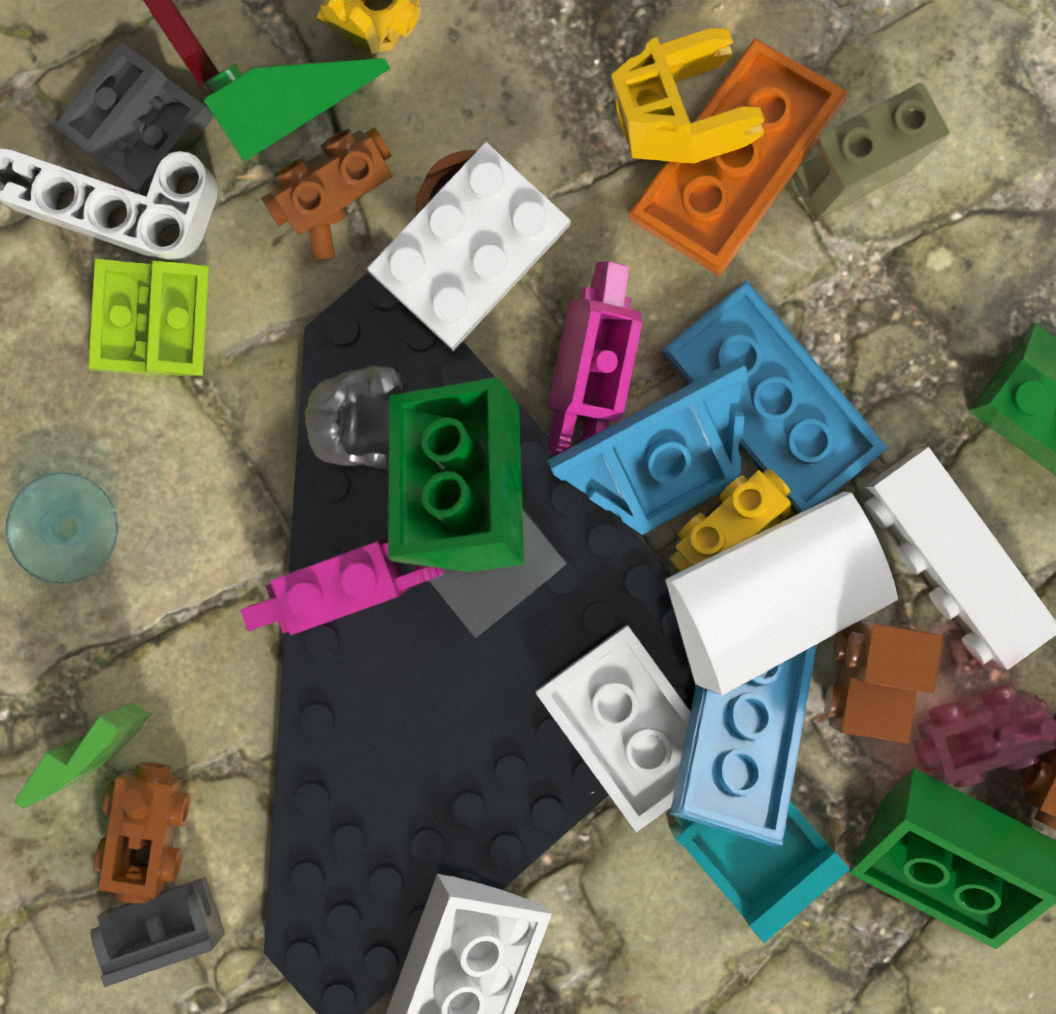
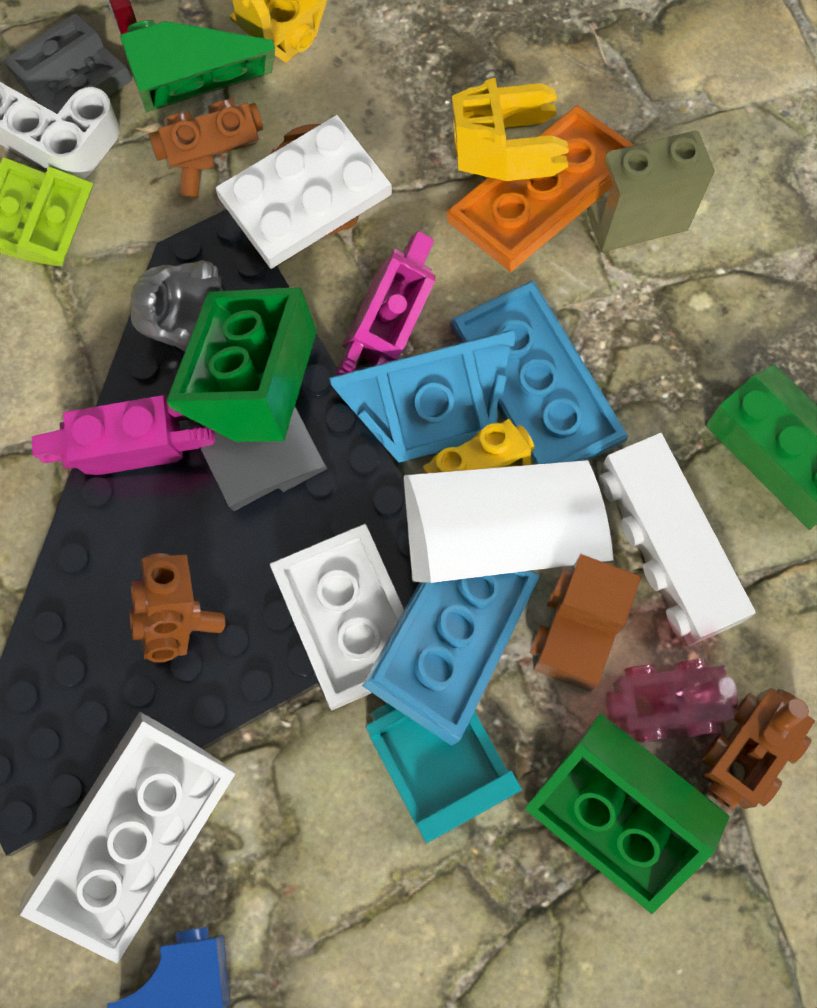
camera: 10 degrees right, 15 degrees down
(443, 772) = (166, 609): none -> dark orange brick

